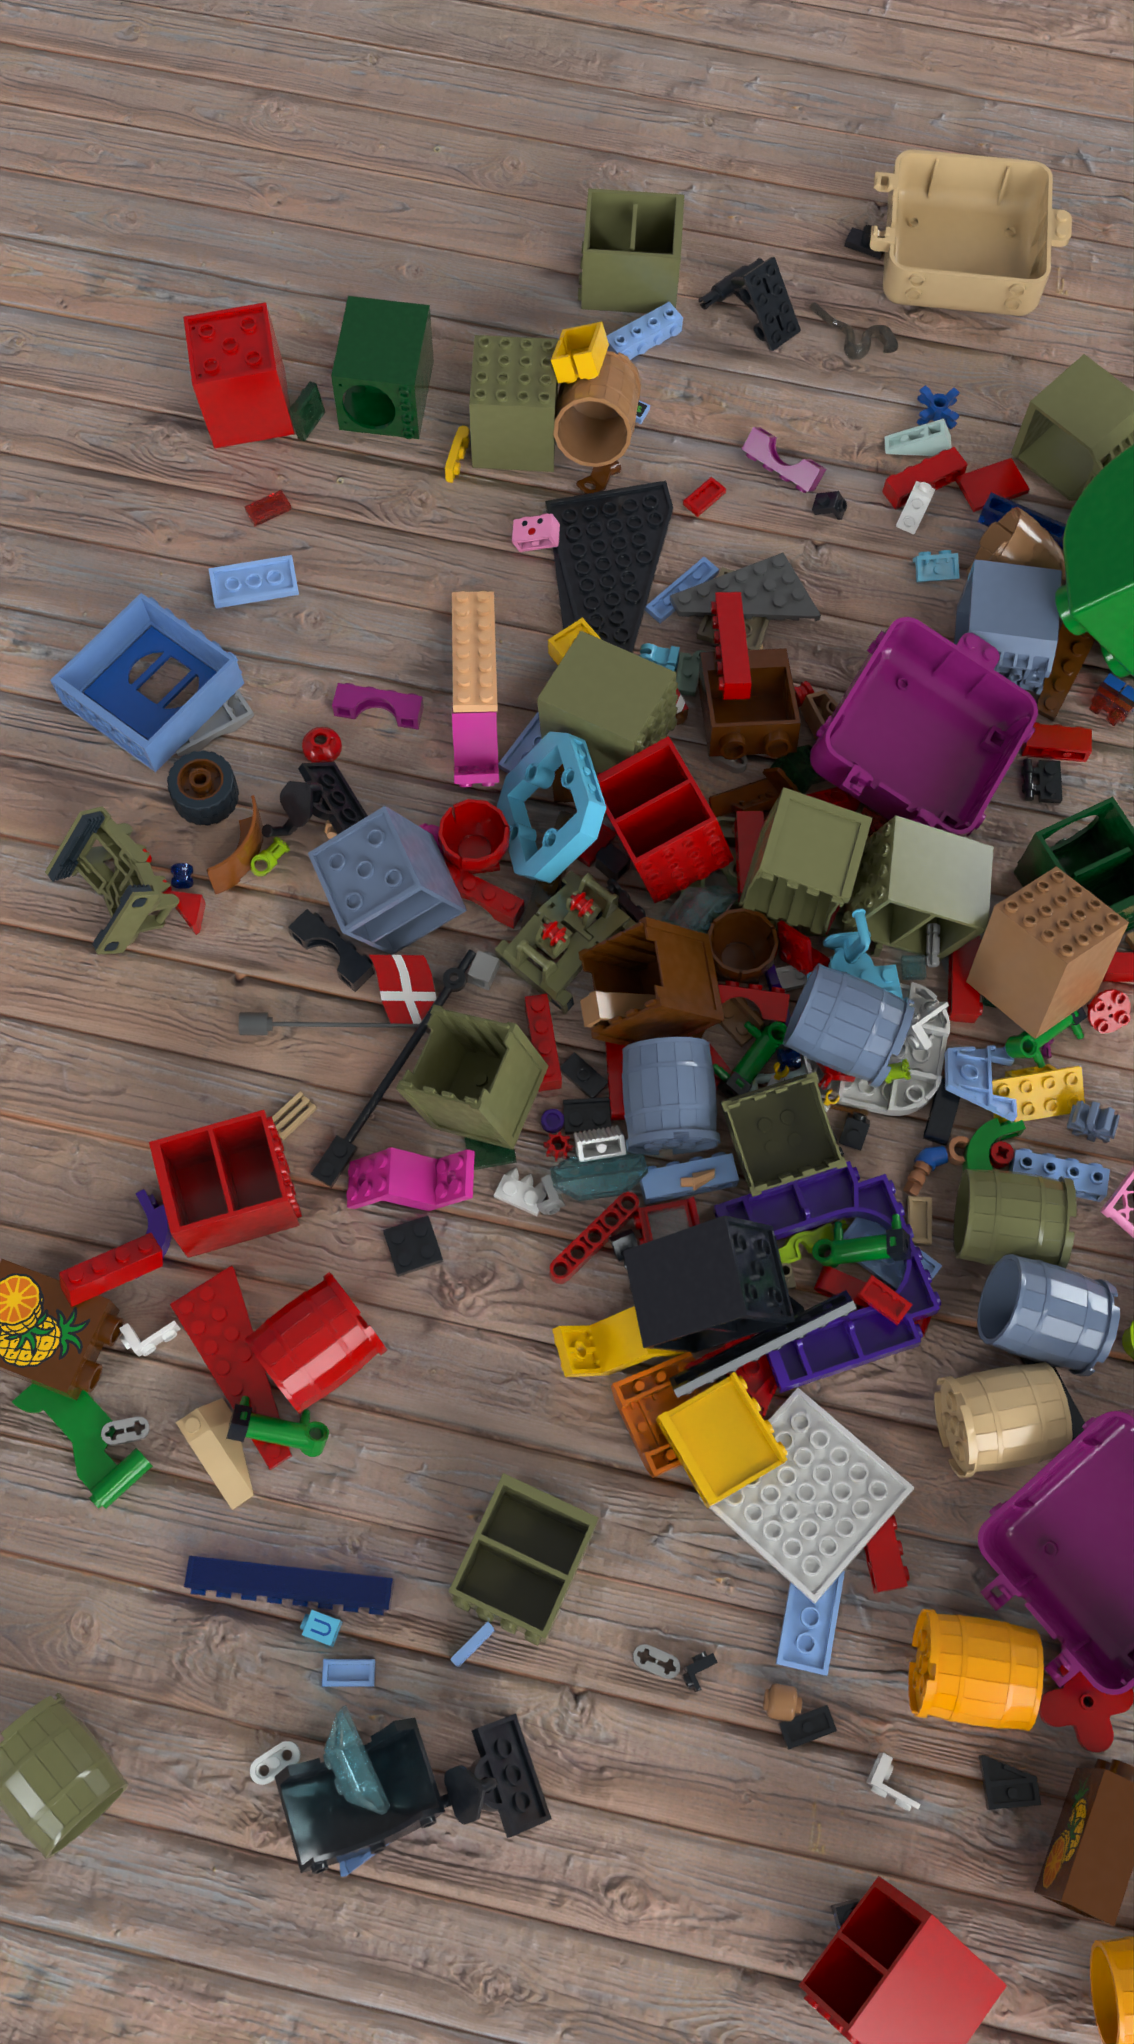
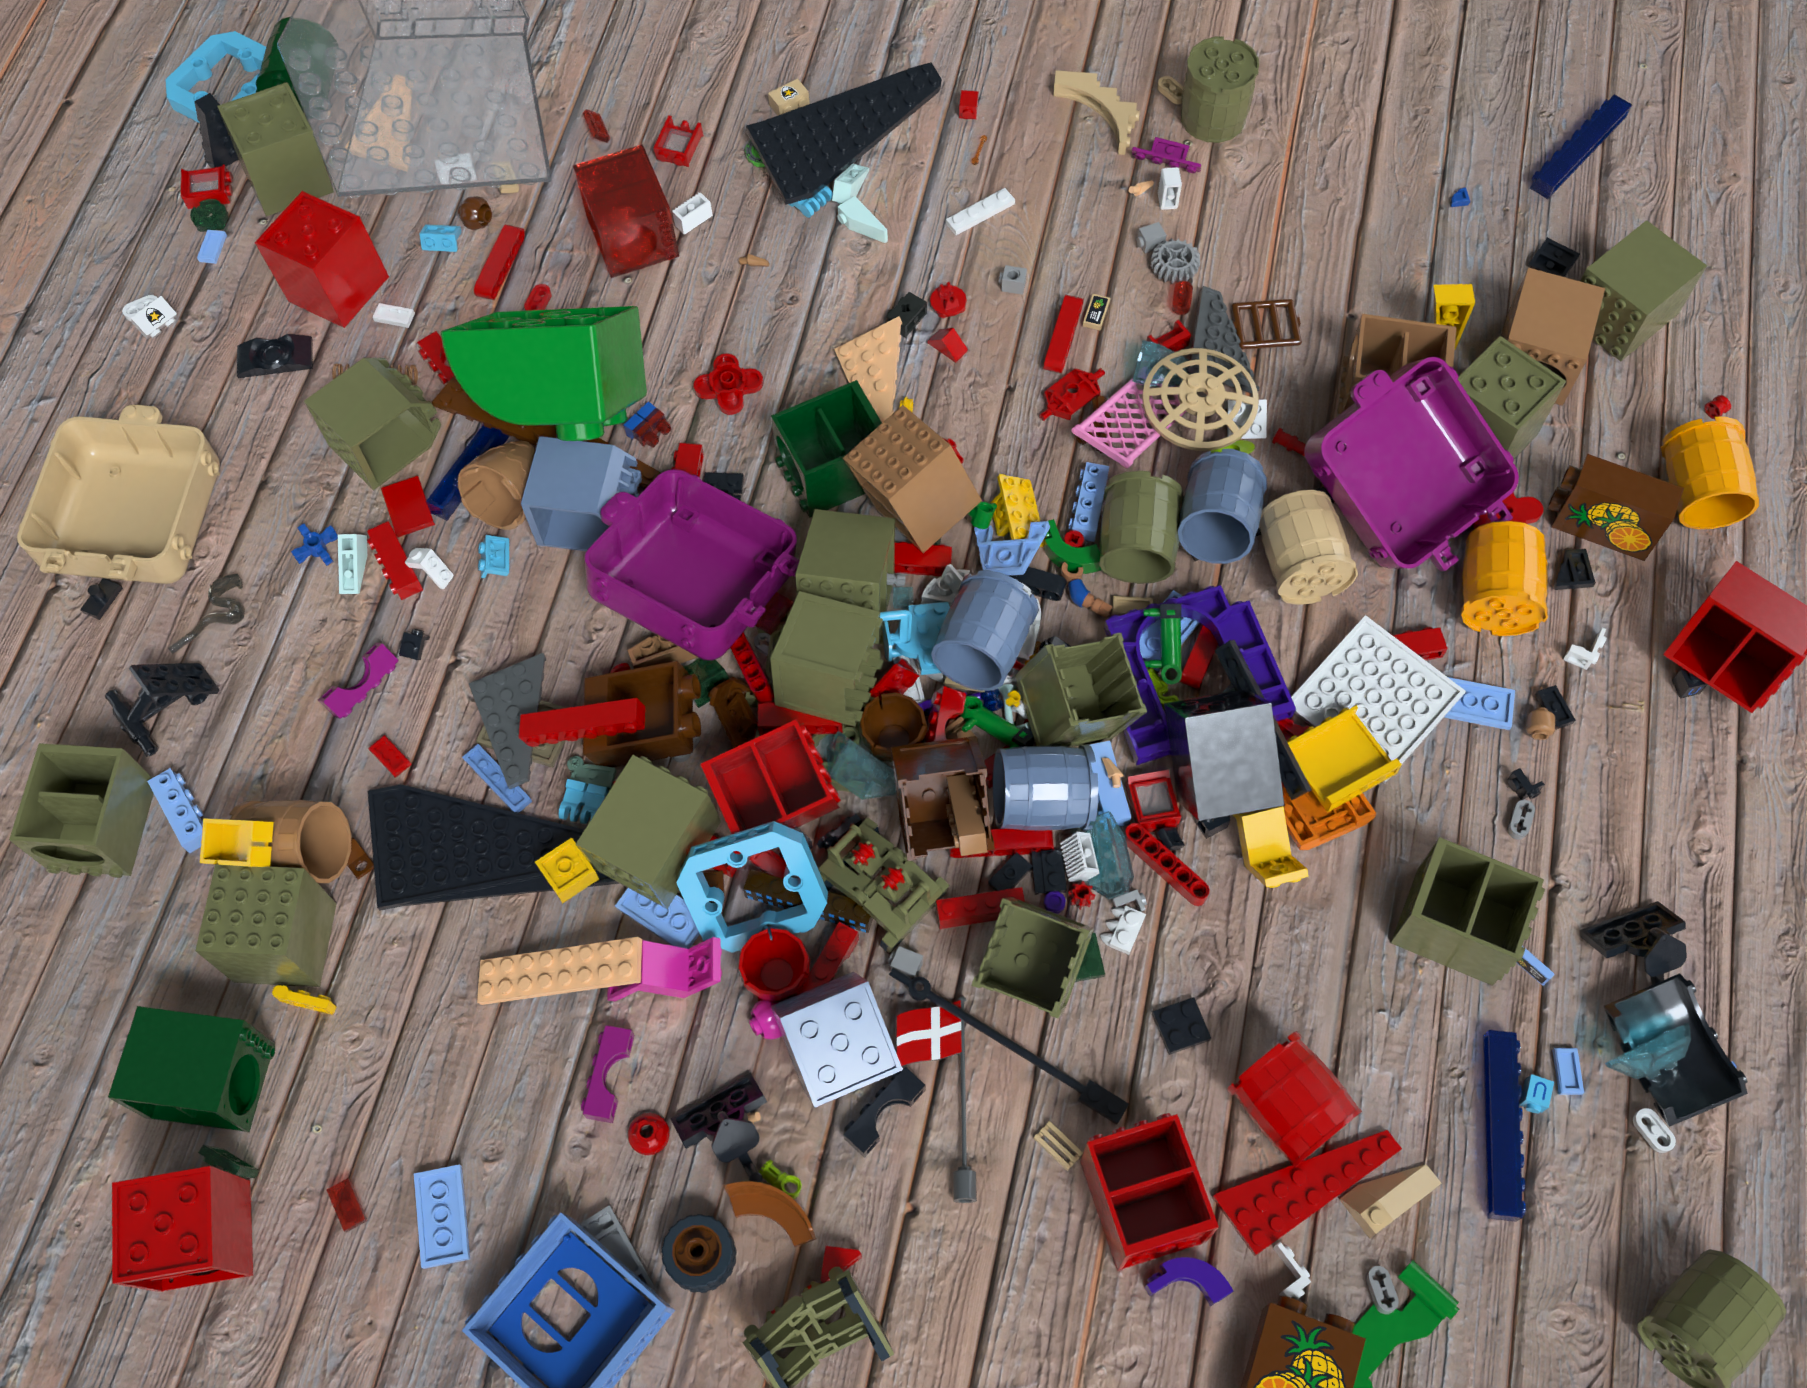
camera: 85 degrees left, 5 degrees down
(111, 1269) = (1242, 1301): red brick -> none
(182, 876) = (798, 1272): clear blue wheel -> none
(305, 1435) = (1370, 1166): green piece -> none
(410, 1179) = (1126, 1022): dark pink bracket -> none
(535, 532) = (417, 915): bright pink brick -> none
(884, 1300) = (1218, 624): red plate -> none
(1093, 1121) = (1045, 470): sand blue gear -> none

